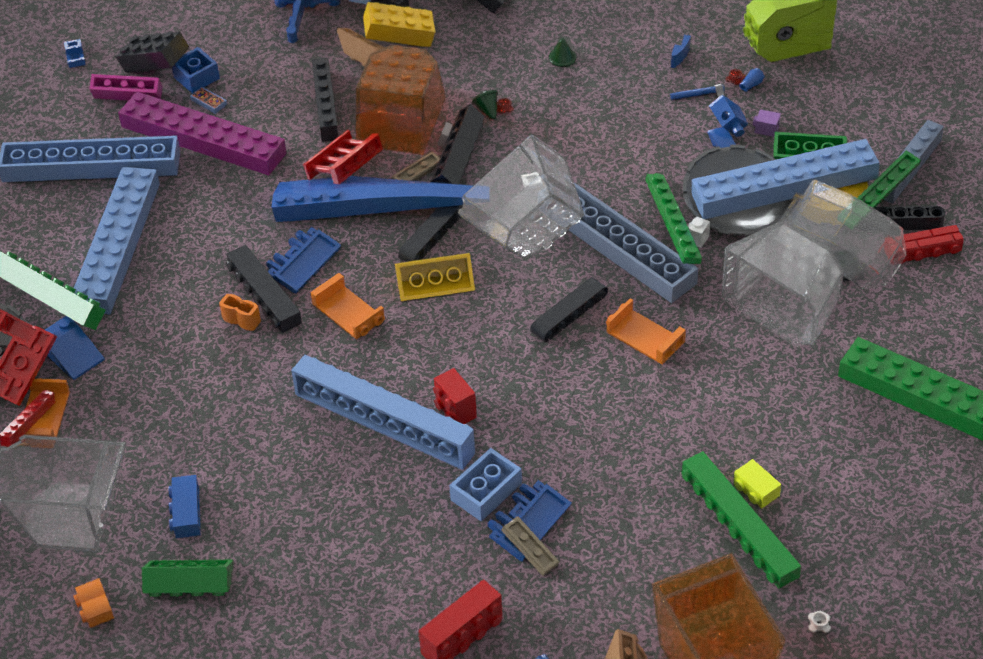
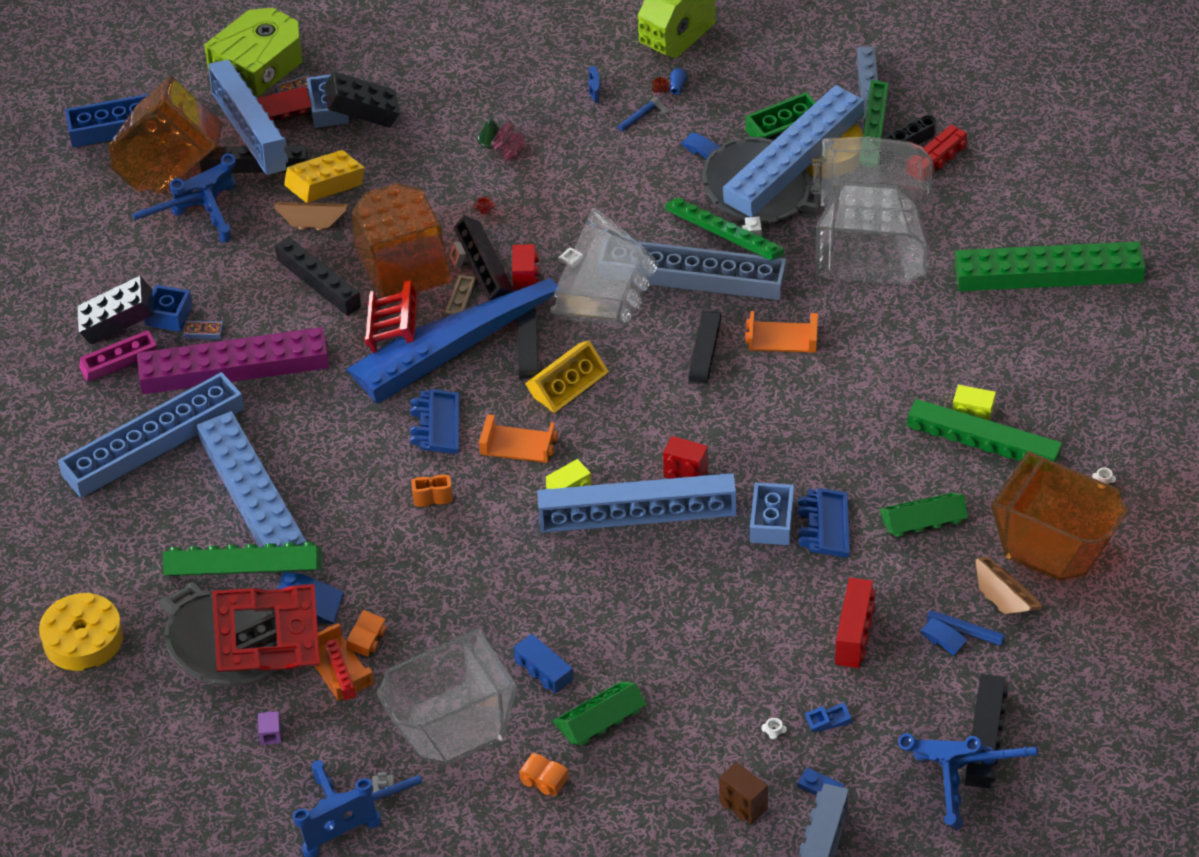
camera: 35 degrees left, 0 degrees up
(74, 53) = (21, 349): blue slope -> none
(82, 400) = (366, 633): none -> orange brick
(263, 289) = (428, 461): black brick -> none
(354, 361) = (571, 475): none -> neon yellow brick
(477, 165) = (524, 266): none -> red brick
(487, 103) = (470, 208): dark green hat -> none
(530, 546) = (847, 540): dark tan tile -> none
(576, 67) = (516, 141): none -> clear pink brick
(619, 560) = (924, 513): none -> green slope
(734, 120) = (693, 121): blue torso -> none
(766, 123) = (724, 112): medium lavender brick -> none

